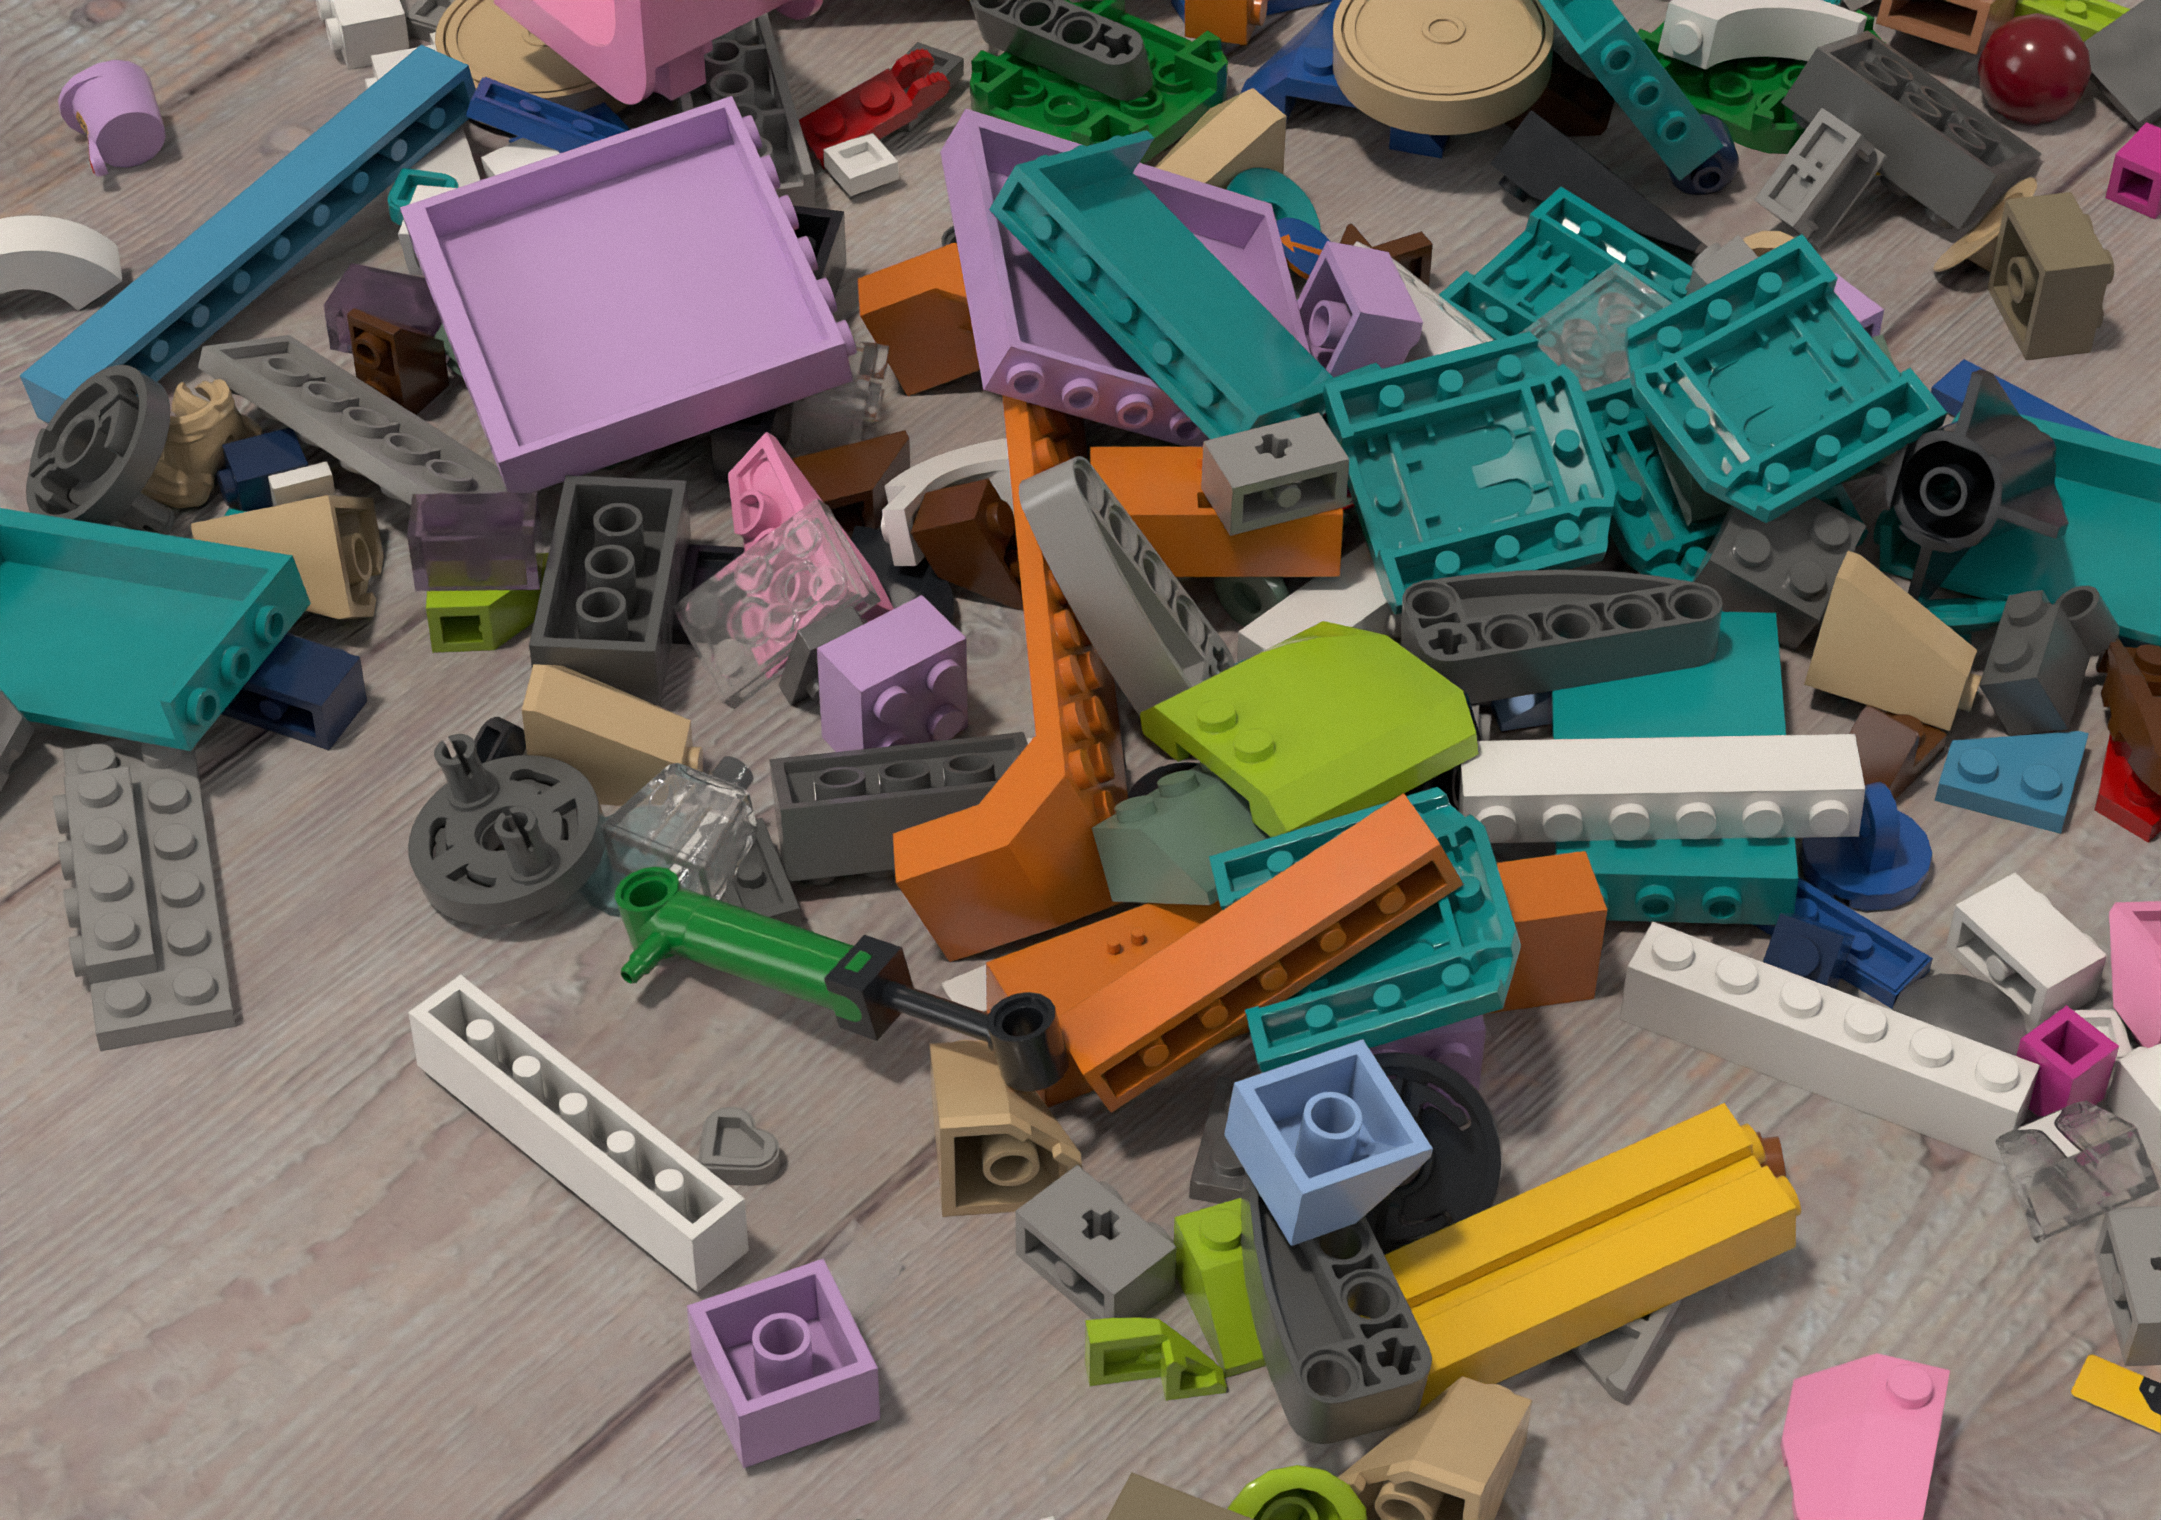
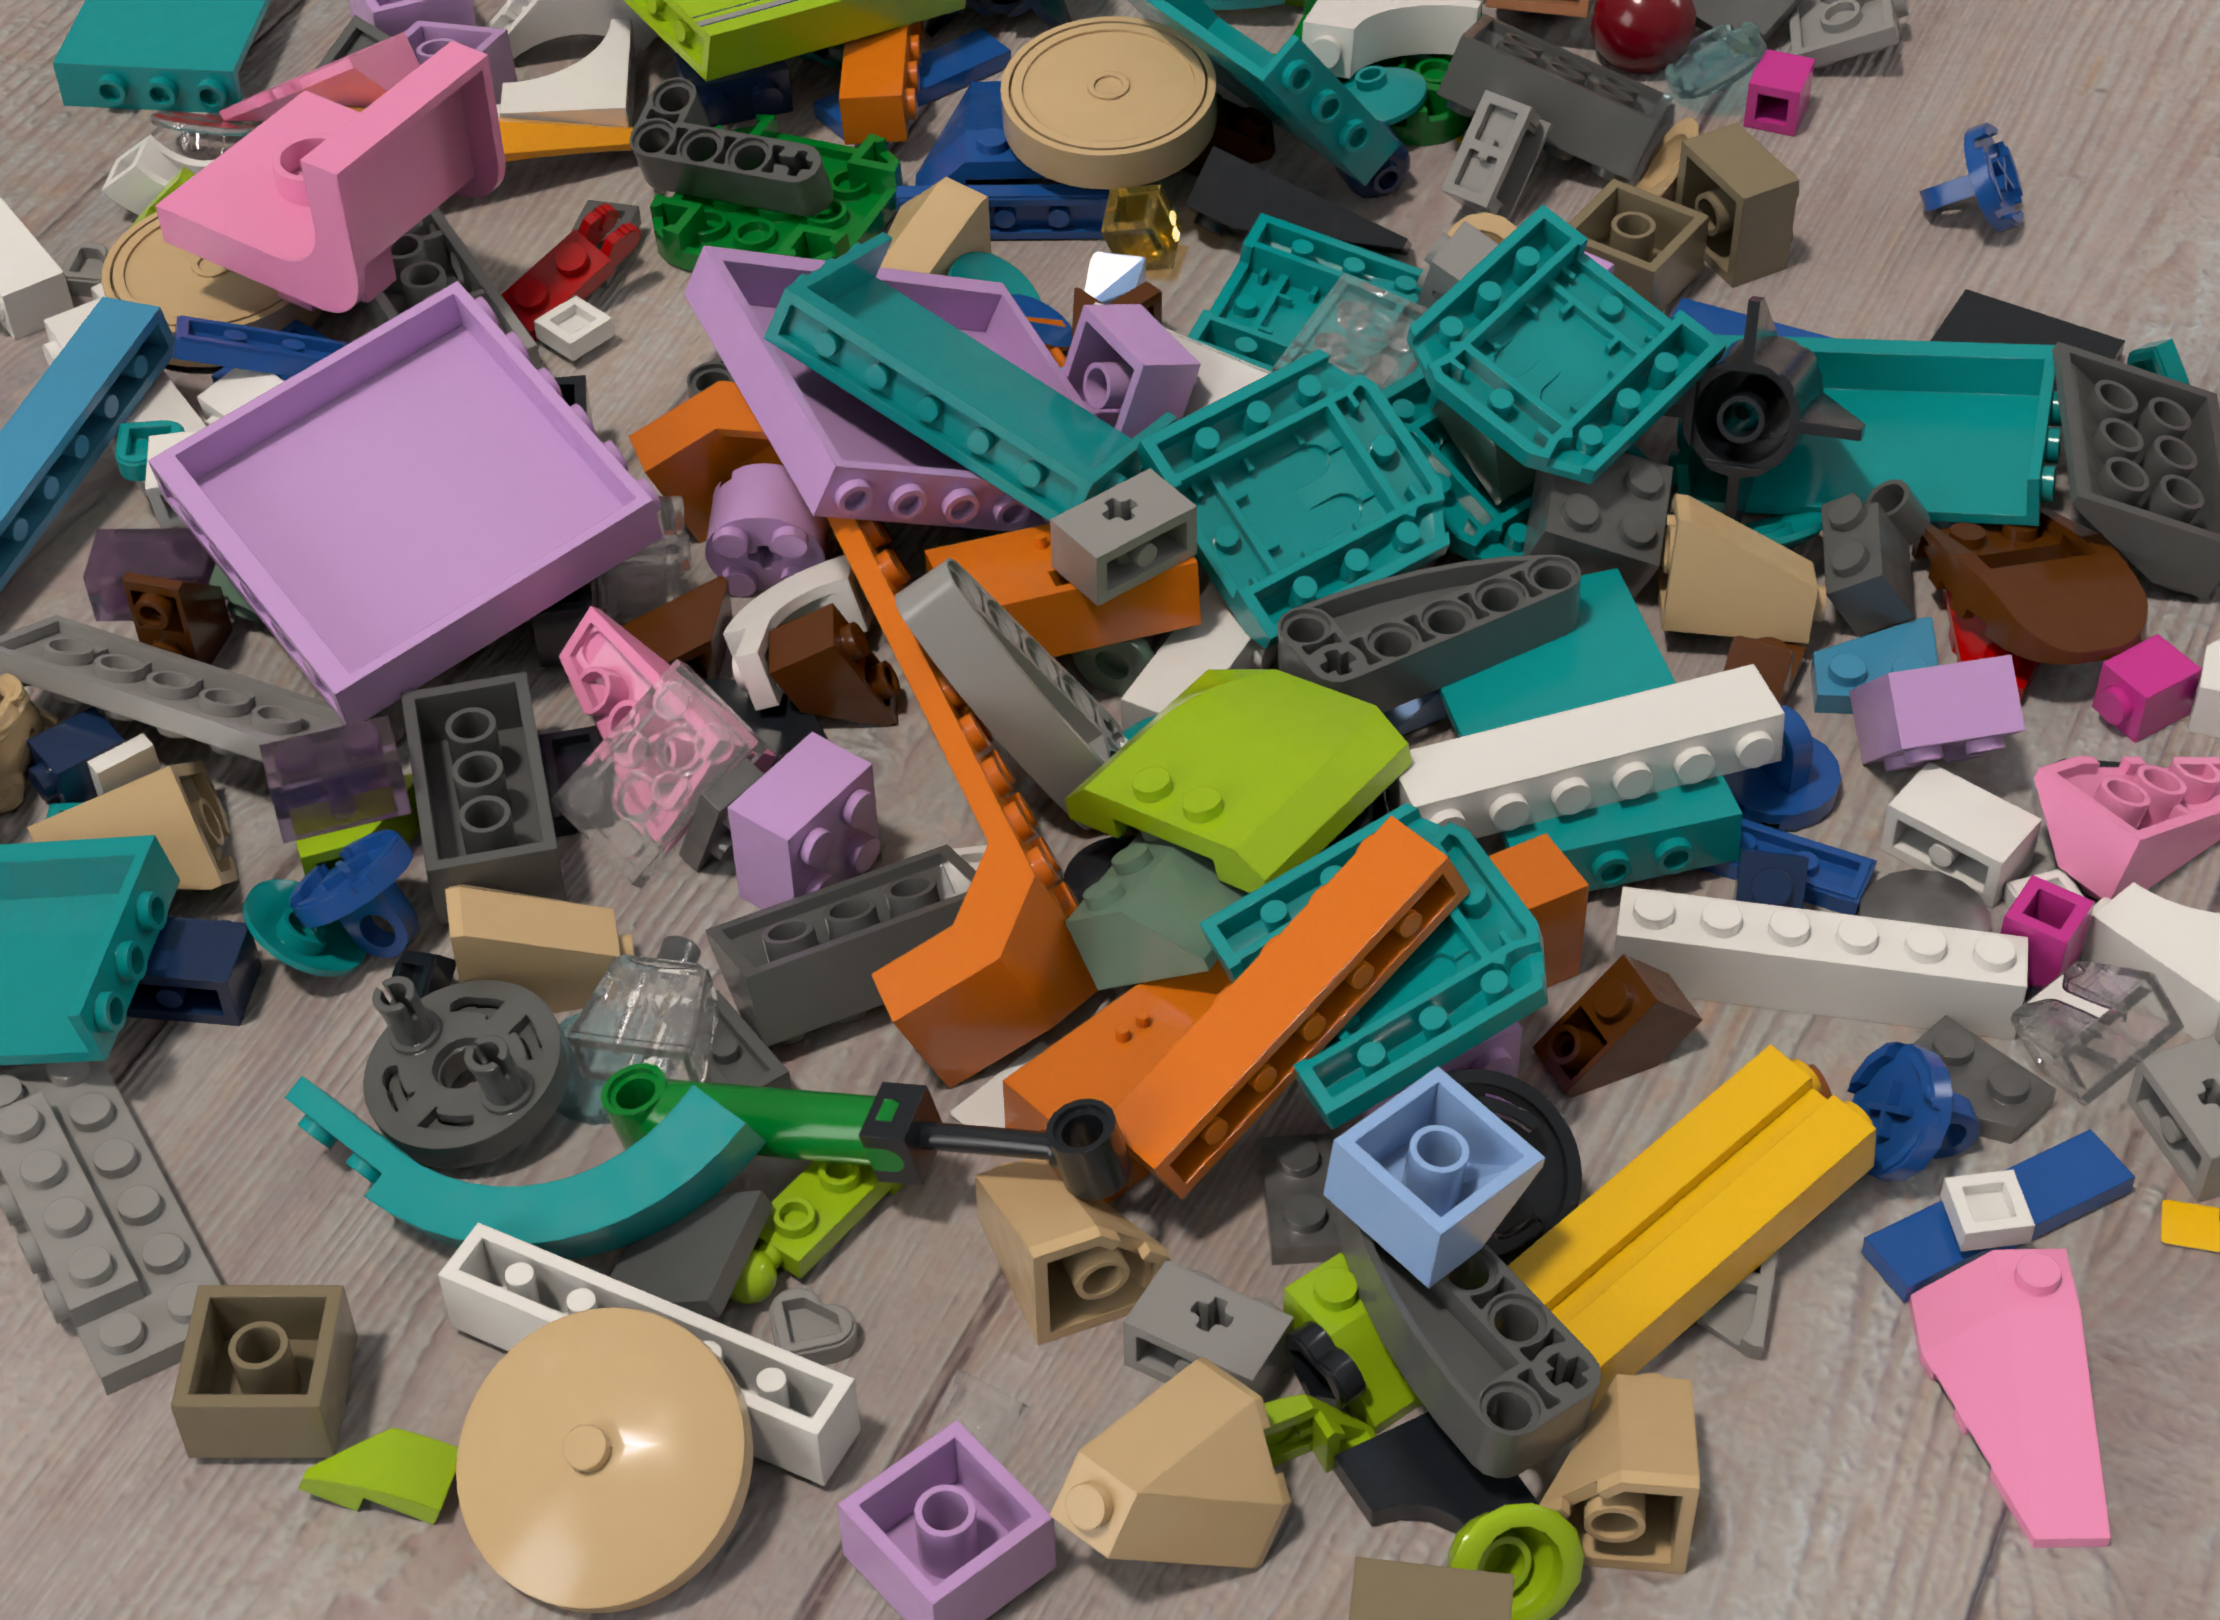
camera: 15 degrees left, 0 degrees up
(235, 1062) = (265, 1371): none -> dark tan brick
(317, 1178) = (390, 1469): none -> lime slope
(411, 673) = (316, 950): none -> teal dish
(468, 652) = (362, 888): none -> blue tile
(500, 1215) = (604, 1460): none -> tan dish
(565, 992) = (578, 1216): none -> teal arch
(652, 1048) = (700, 1255): none -> dark grey tile
(762, 1053) = (808, 1223): none -> lime plate
(947, 400) = (762, 530): none -> lavender brick
(1008, 1363) = (1180, 1477): none -> tan slope
(1189, 1300) = (1322, 1367): none -> black tile
(1245, 1426) = (1423, 1477): none -> black tile
(1345, 140) = (1036, 210): none -> blue tile
(1397, 218) = (1114, 275): none -> slope
(1439, 178) = (1143, 225): none -> clear yellow brick
(1603, 1056) = (1617, 1028): none -> reddish brown slope
(1733, 91) = (1388, 92): none -> teal dish
(1849, 1201) = (1913, 1110): none -> blue tile
(1893, 1316) = (1987, 1210): none -> white plate
(1917, 1323) = (2057, 1190): none -> blue tile
(1929, 1193) = (2000, 1090): none -> flat silver wing
(1933, 299) = (1647, 238): none -> dark tan brick
(2041, 824) = (1937, 710): none -> lavender brick
(2095, 124) = (1716, 60): none -> clear light blue tile

